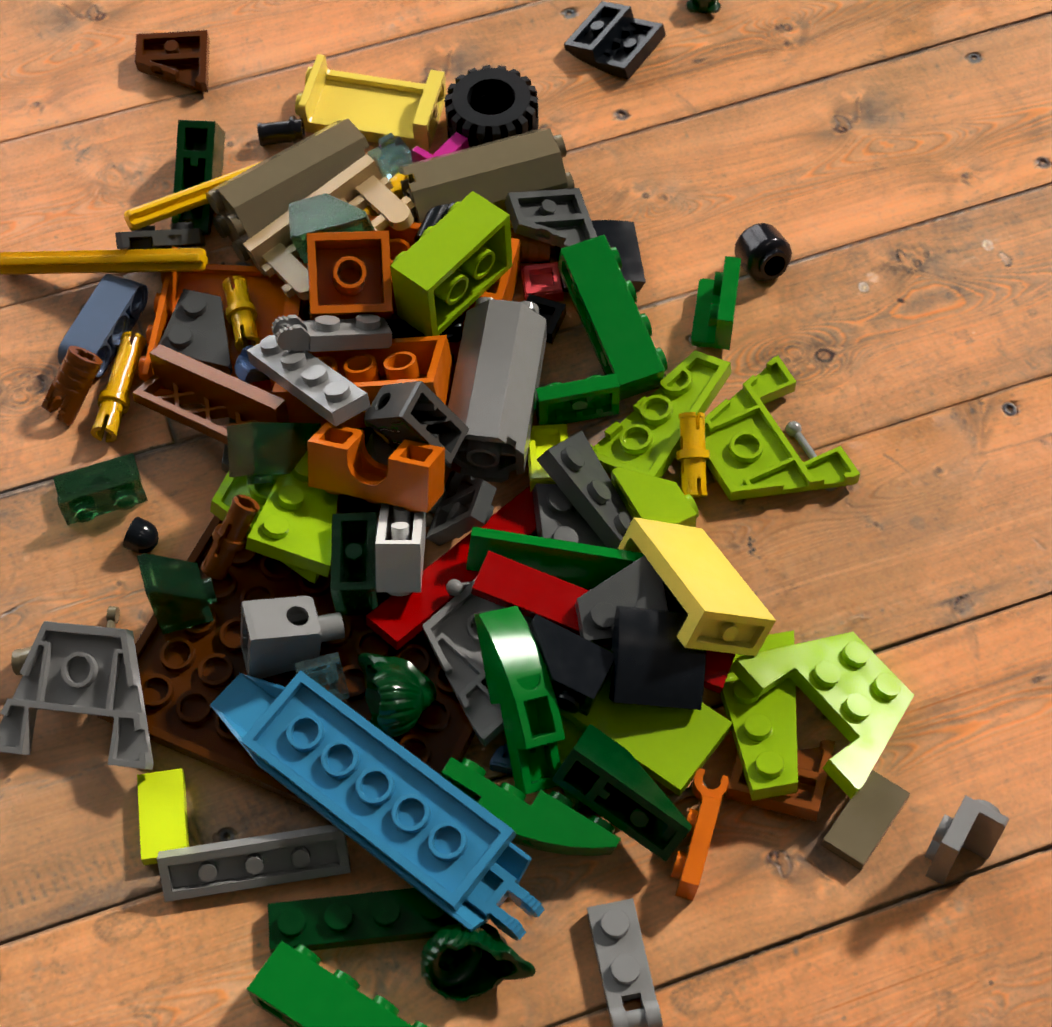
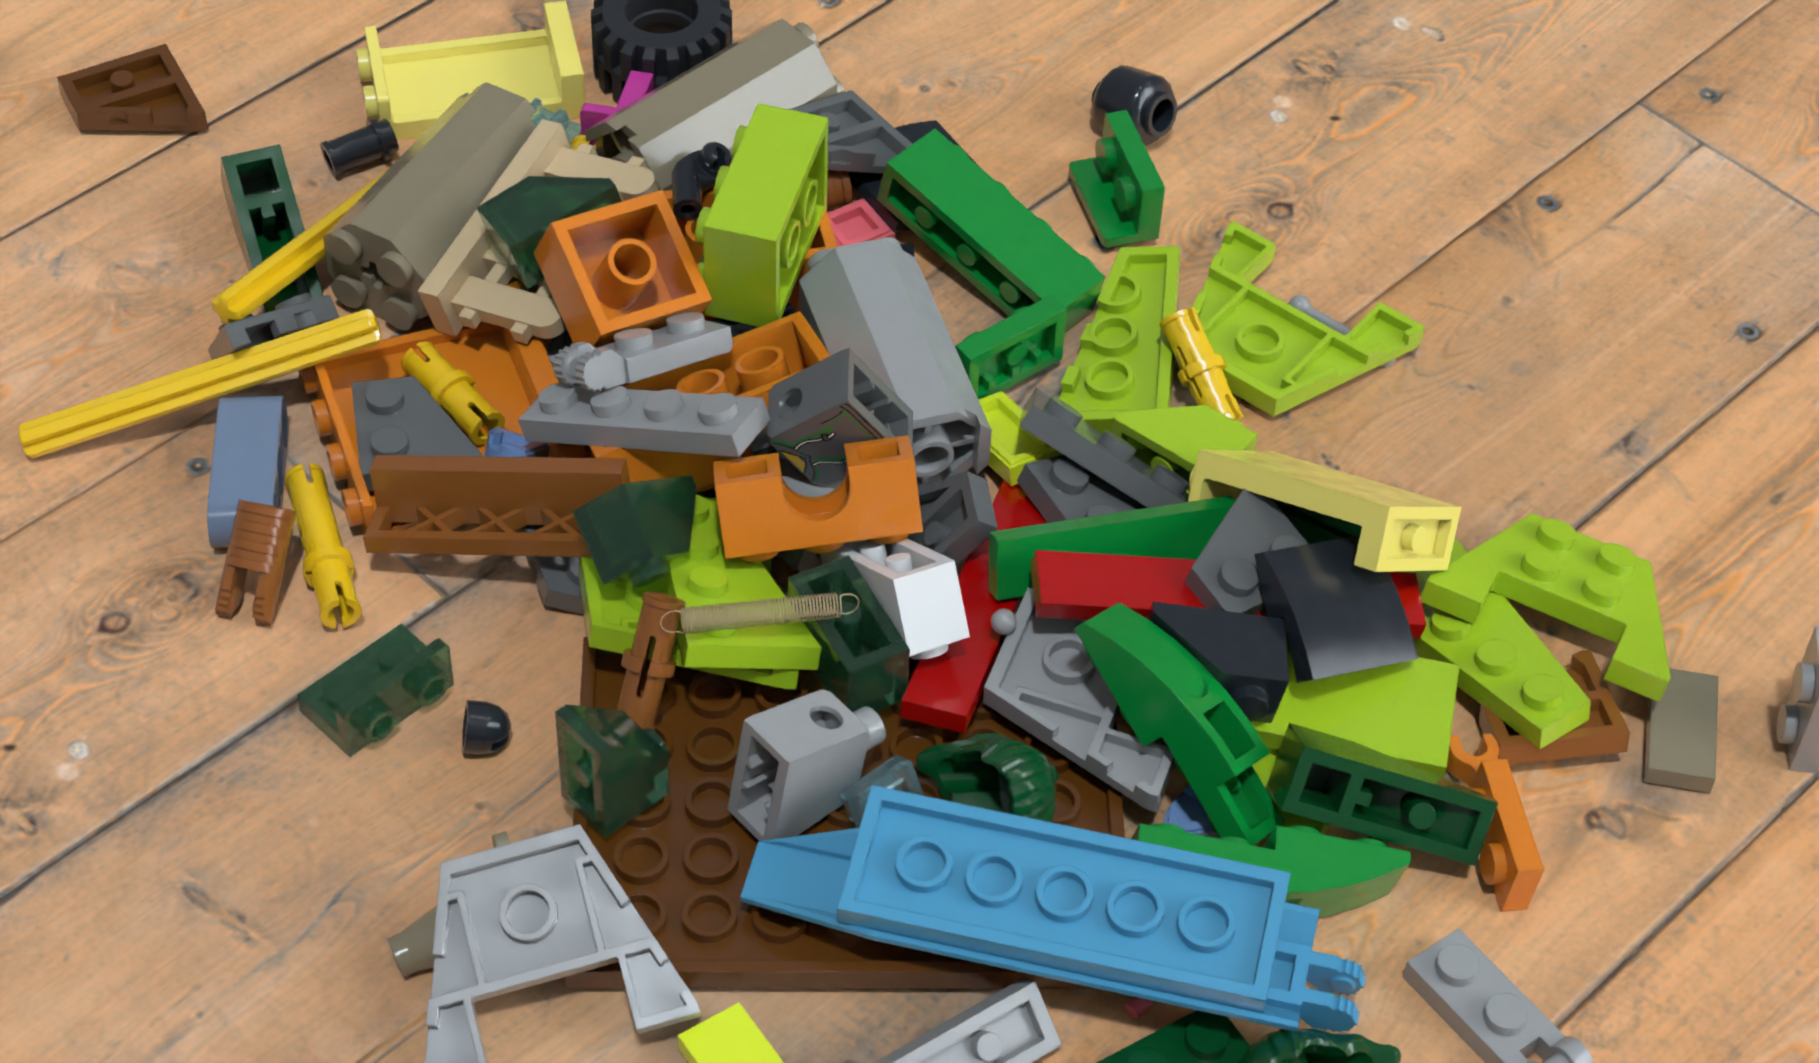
camera: 30 degrees left, 10 degrees down
(294, 527) = (730, 619): none -> tan piece

